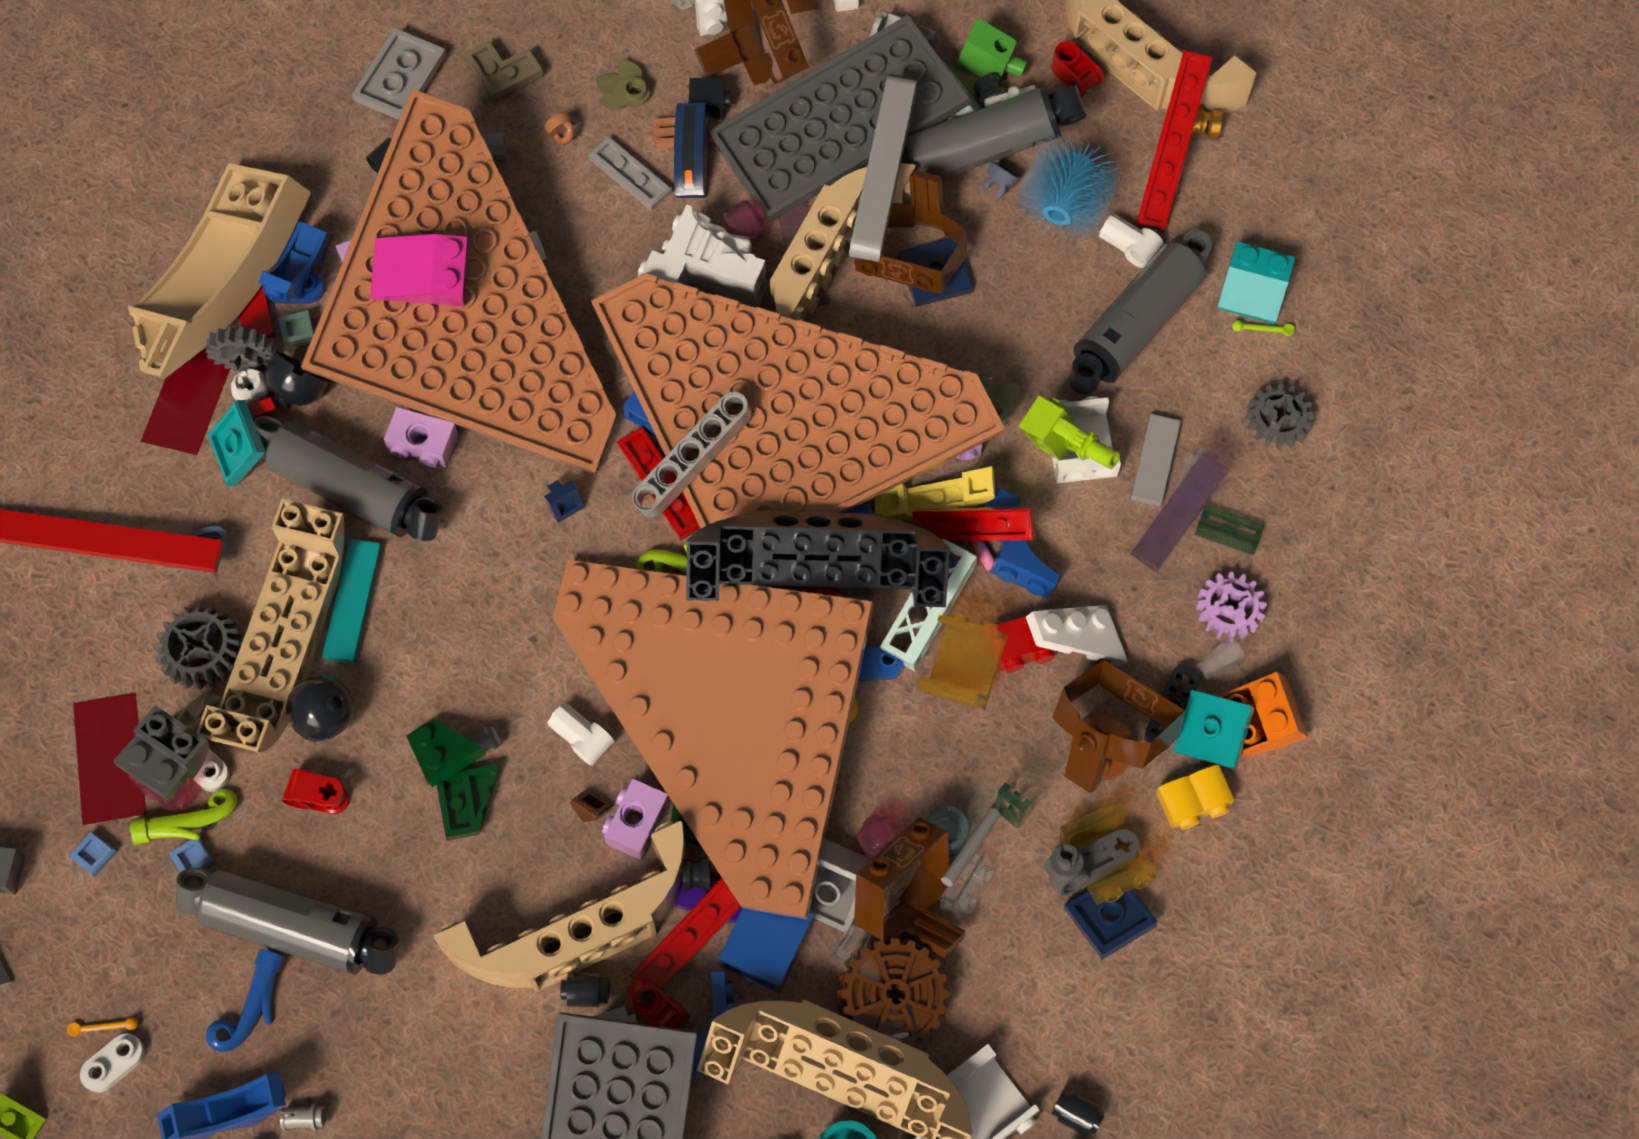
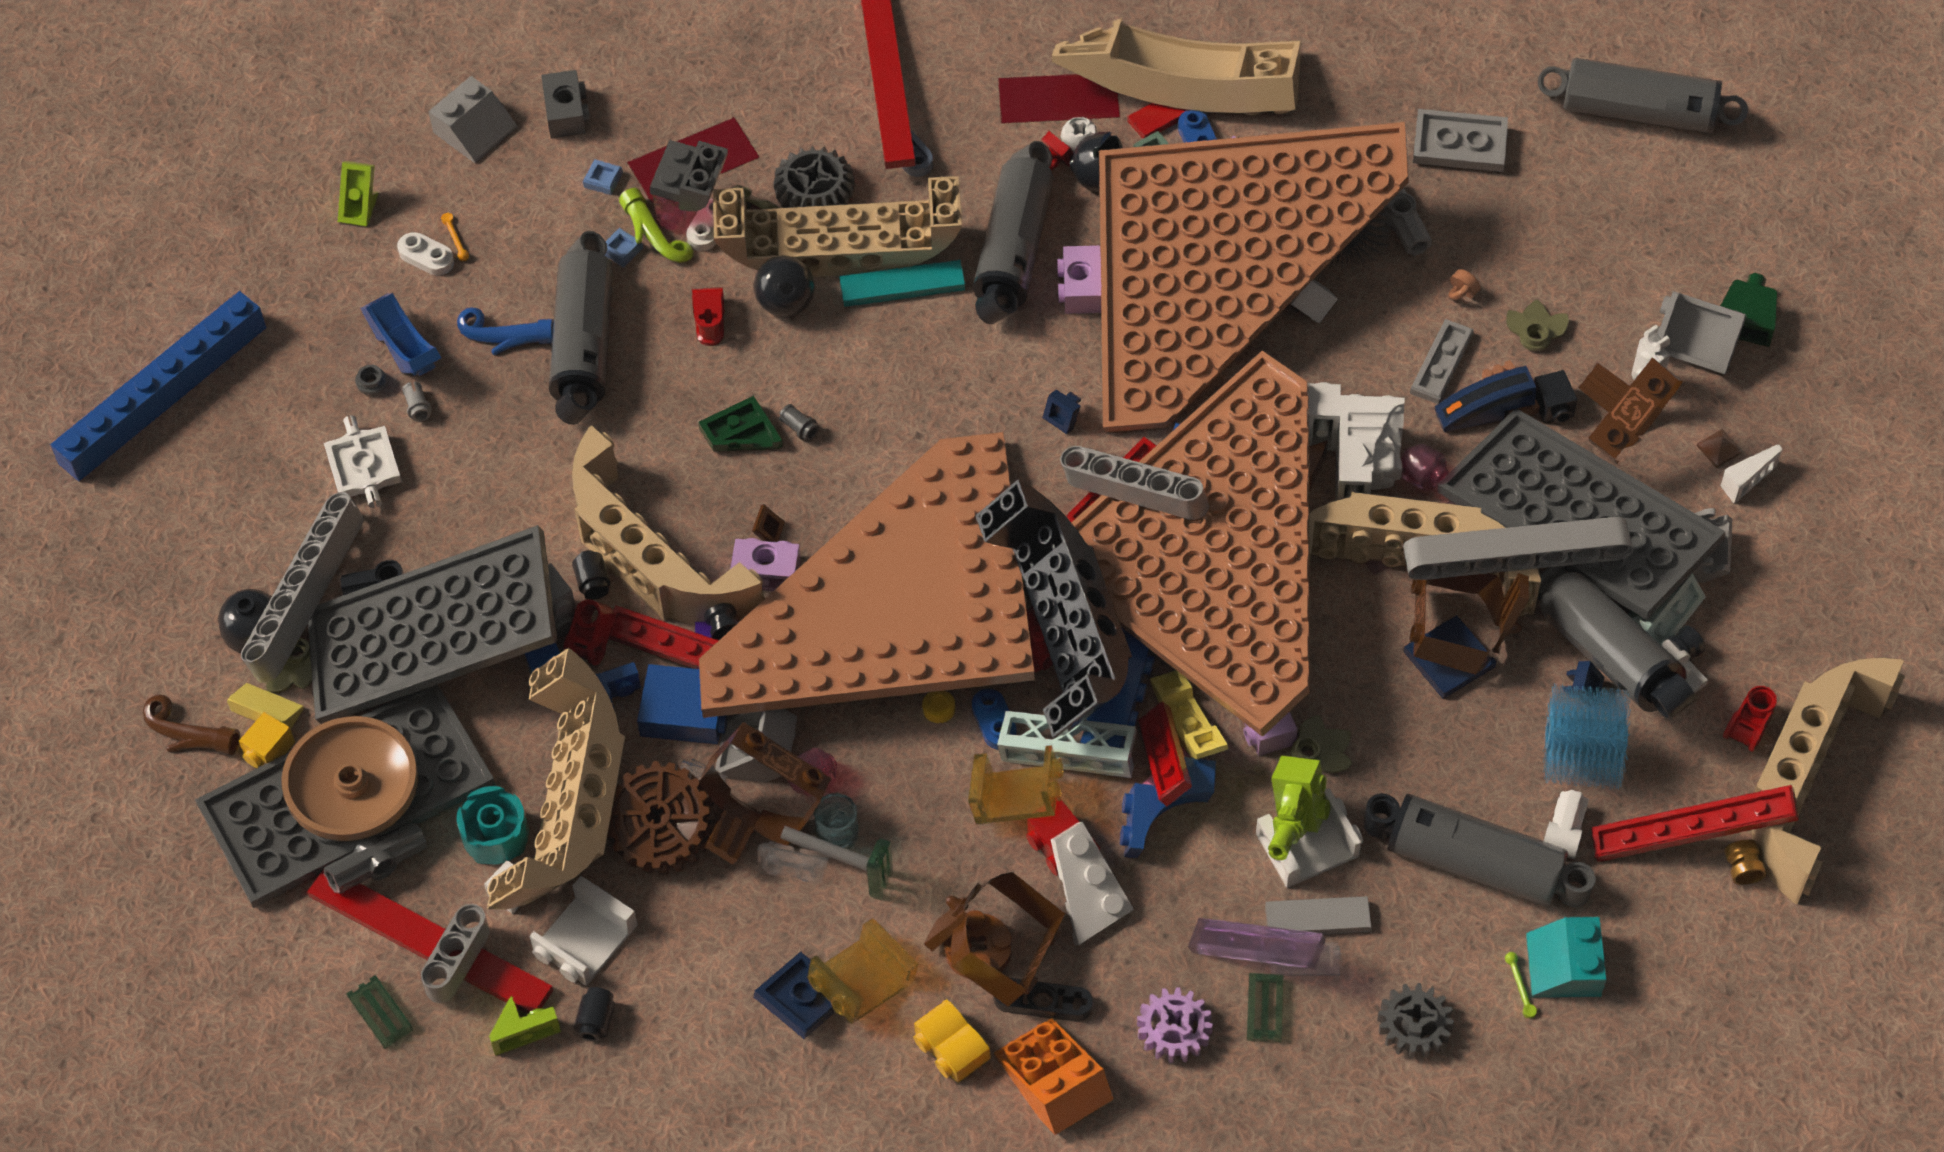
camera: 75 degrees right, 10 degrees down
(236, 443) = (1015, 139): teal plate -> none
(239, 348) = (1108, 107): dark grey gear -> none
(294, 266) = (1204, 120): blue arch -> none
(420, 269) = (1229, 203): dark pink slope -> none
(442, 751) = (776, 391): dark green wing -> none
(501, 76) = (1499, 219): dark tan plate -> none
(587, 739) = (832, 502): white piece -> none
(989, 52) = (1726, 627): bright green torso -> none
(1075, 869) = (832, 942): dark grey piece -> none
(1214, 729) = (1026, 1036): teal plate -> none
(1222, 658) = (1113, 1032): clear cone -> none

